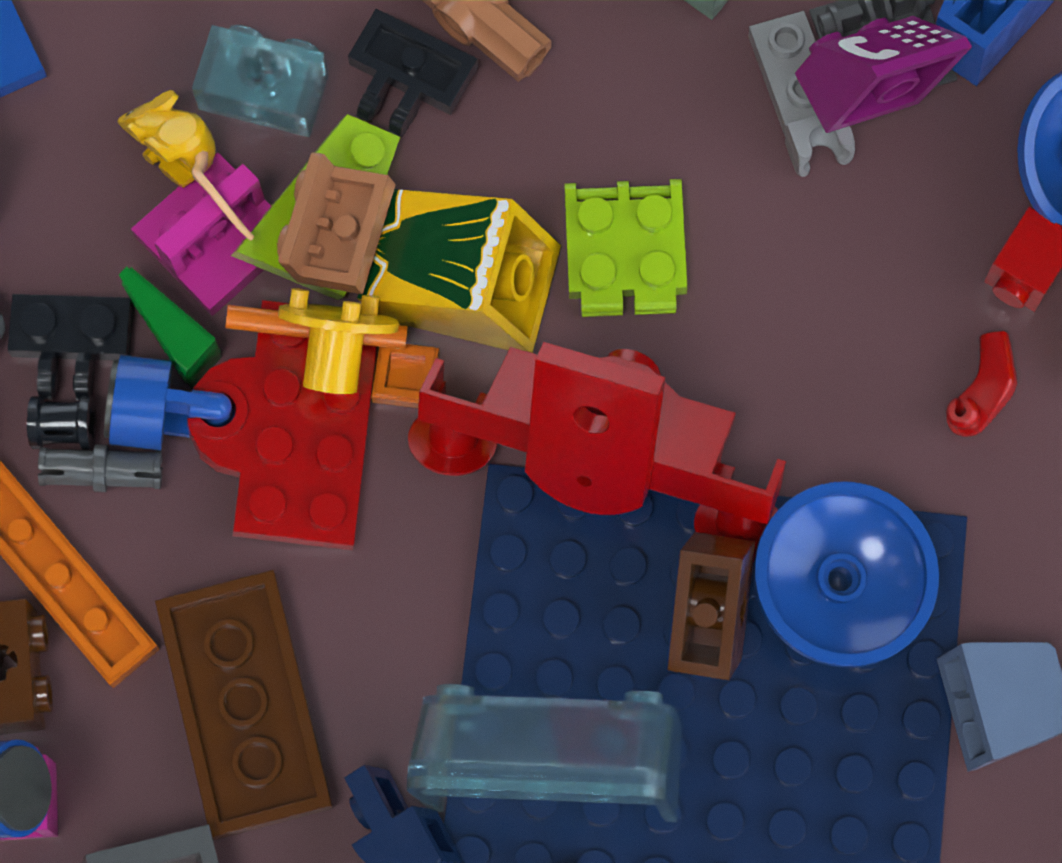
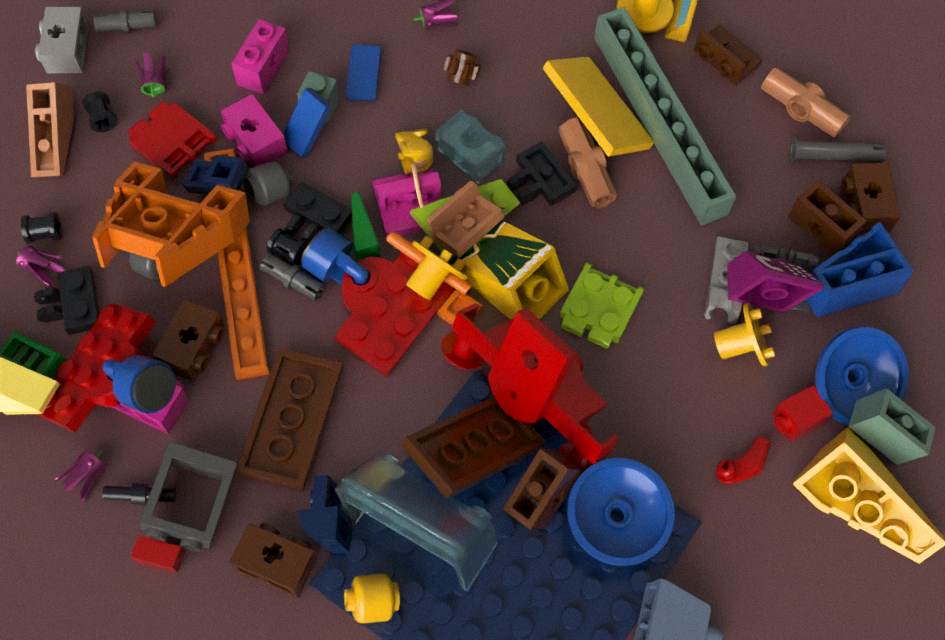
camera: 25 degrees right, 10 degrees down
(567, 600) = (471, 446): none -> reddish brown plate
(885, 181) = (745, 337): none -> yellow piece

